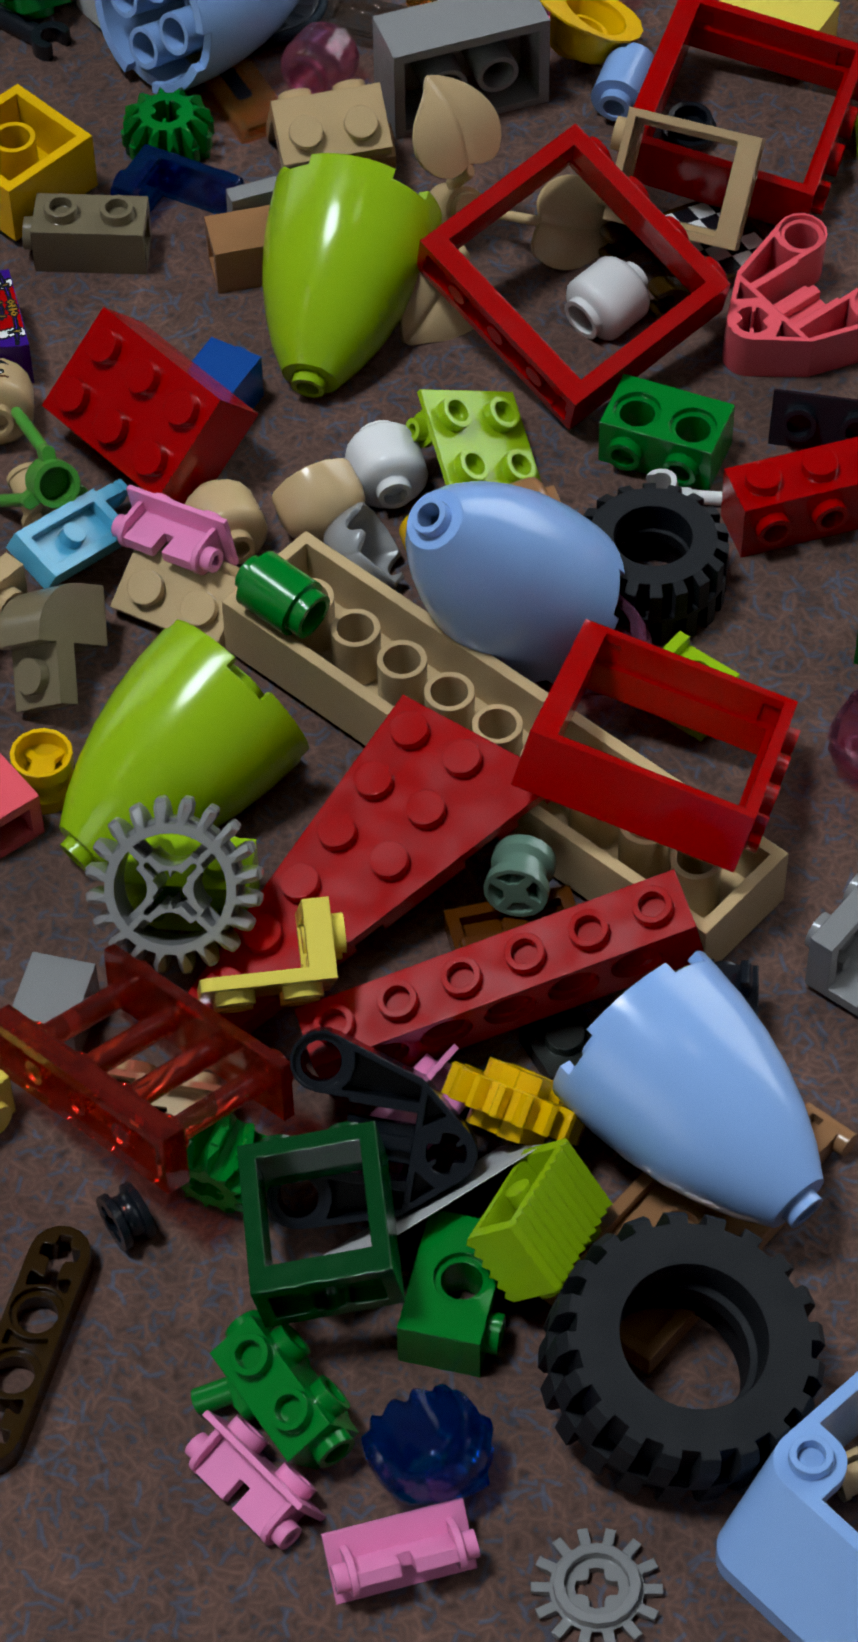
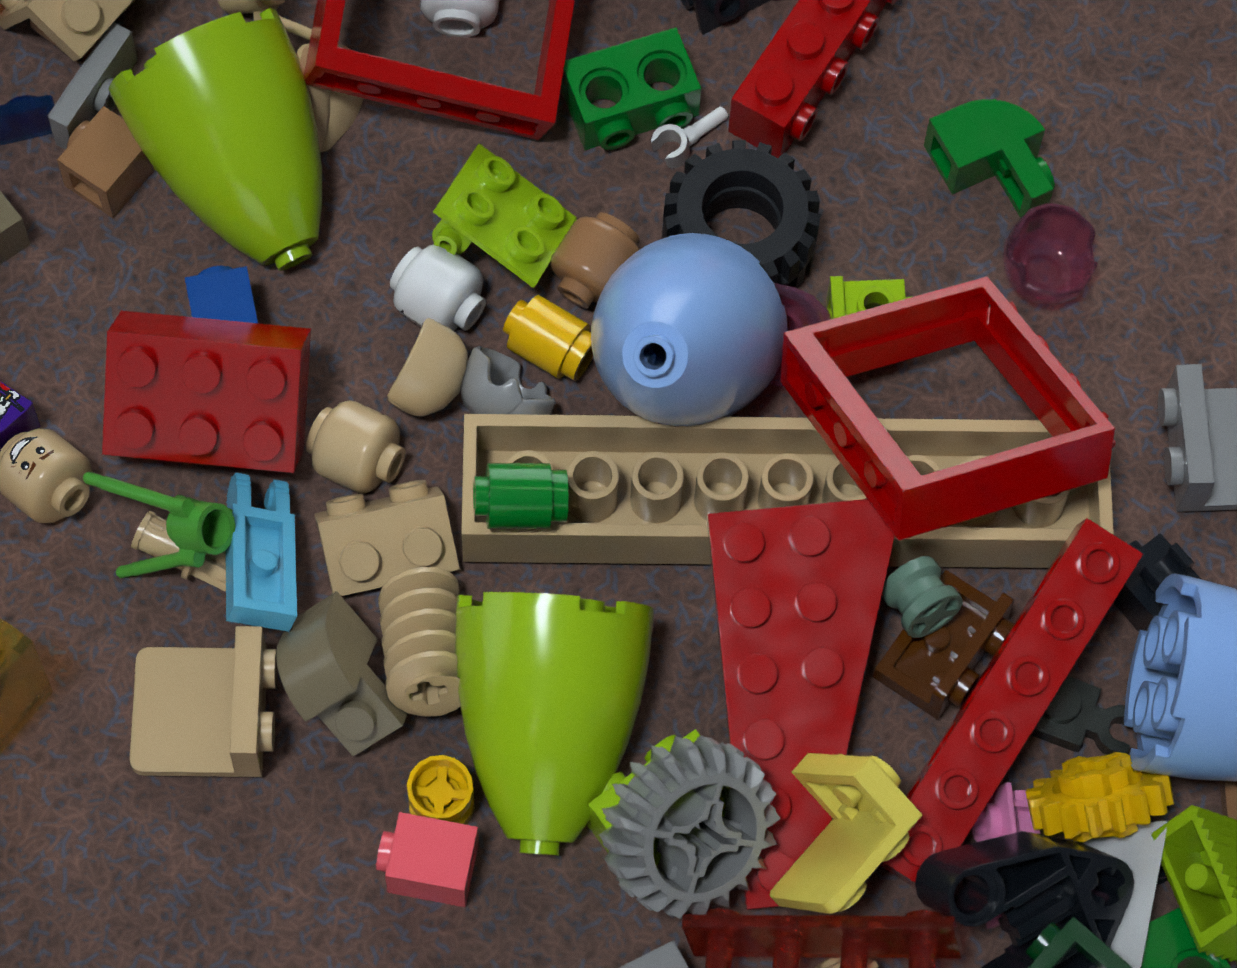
camera: 45 degrees left, 15 degrees up
(105, 660) = (420, 641): none -> tan piece
(195, 537) = (378, 487): bright pink hinge -> none

